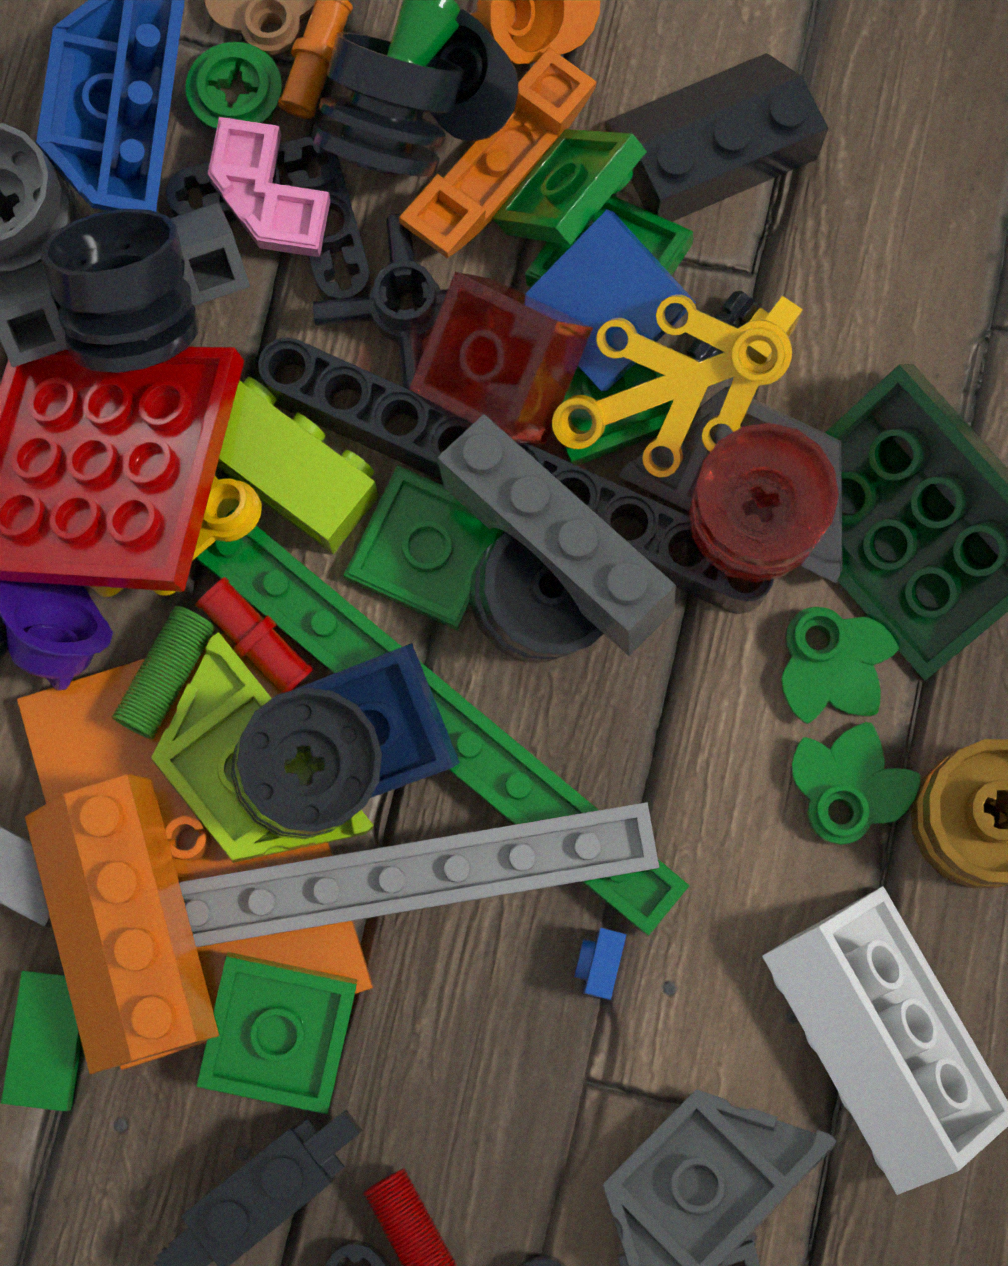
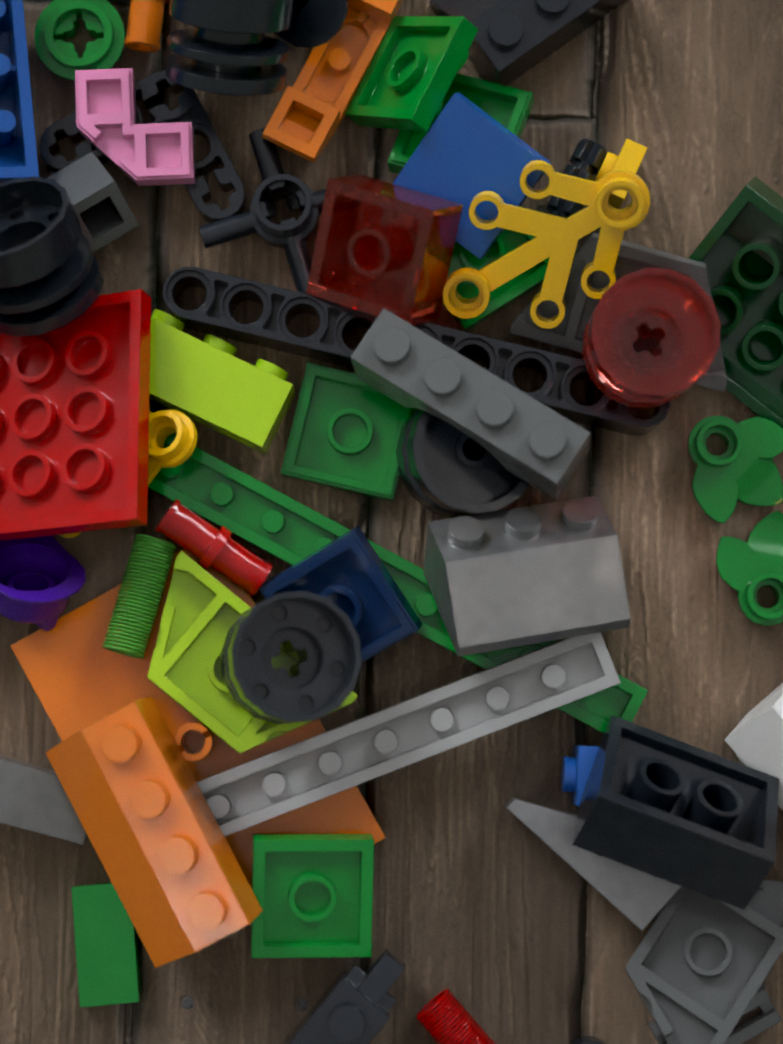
camera: 15 degrees left, 5 degrees up
(581, 730) = (526, 575): none -> flat silver slope
(617, 1066) = (628, 889): none -> flat silver slope
(694, 1023) = (679, 813): none -> black slope

